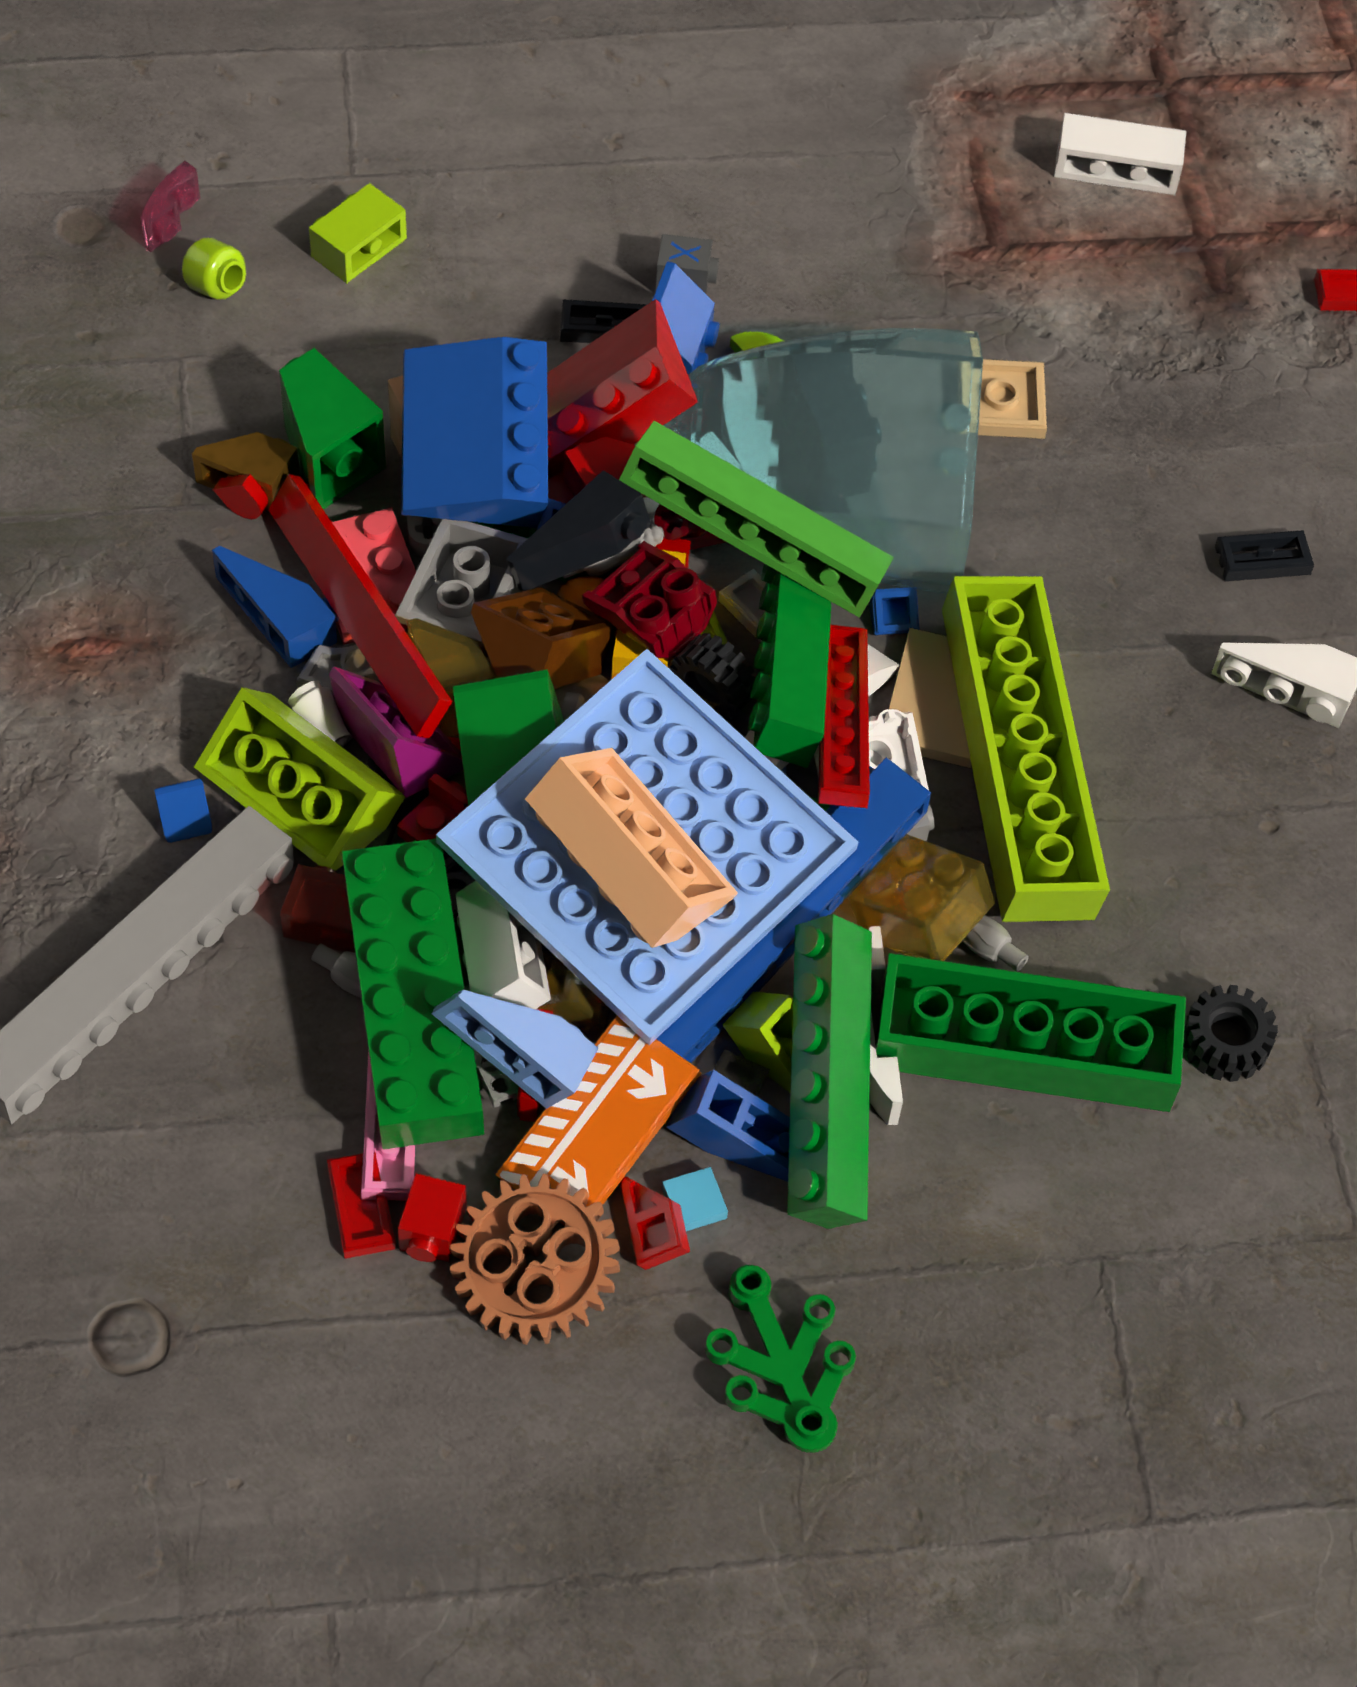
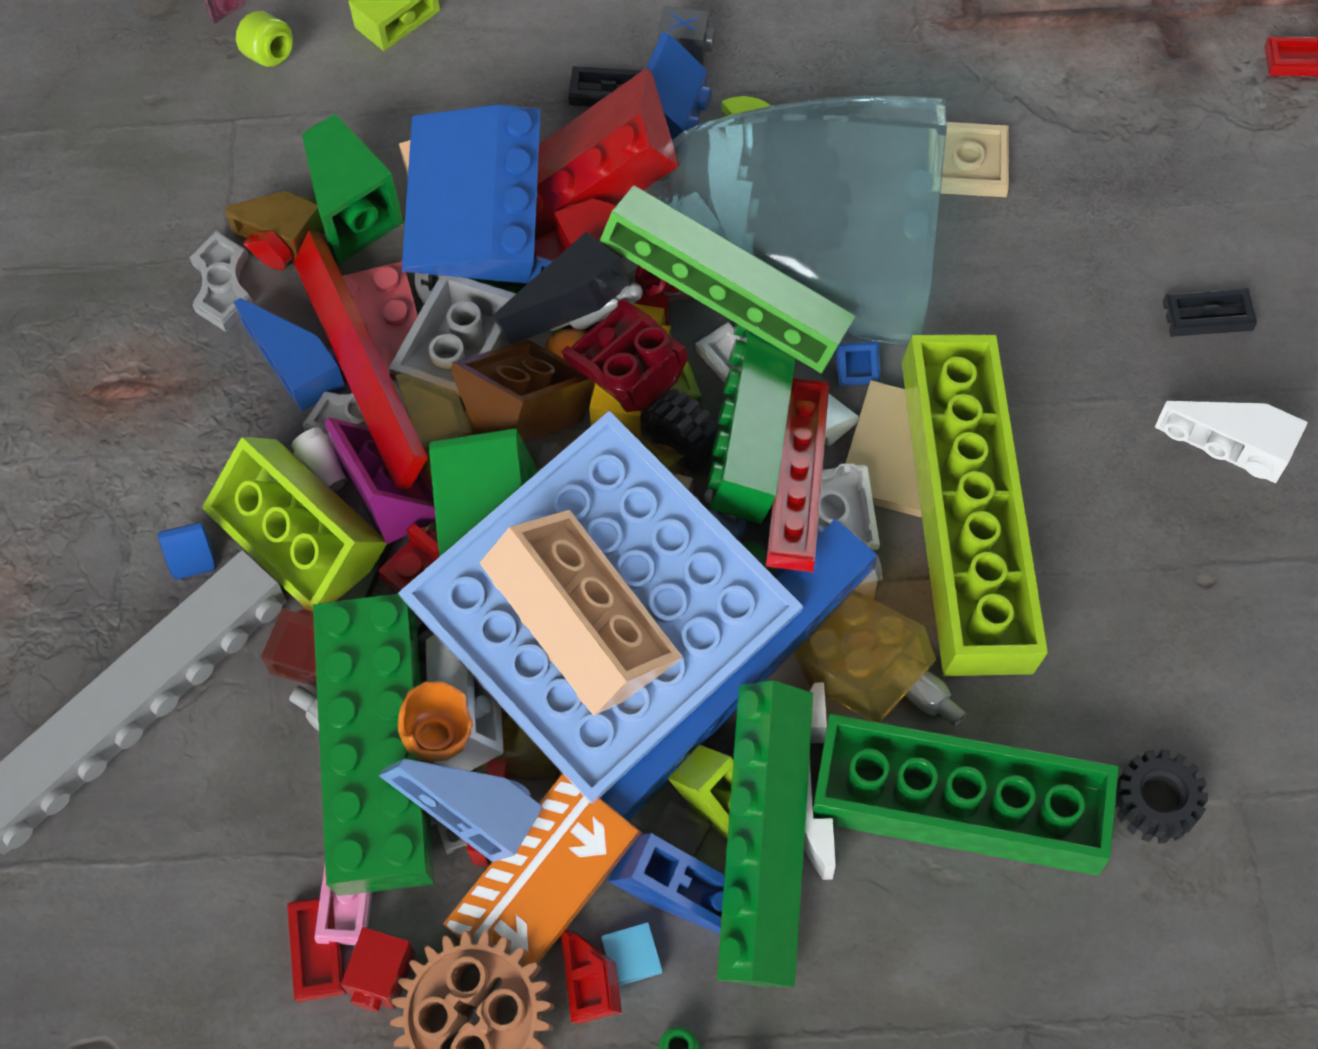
camera: 10 degrees right, 5 degrees up
(190, 543) = (220, 265): none -> light grey tile
(485, 958) = (434, 721): none -> orange hair

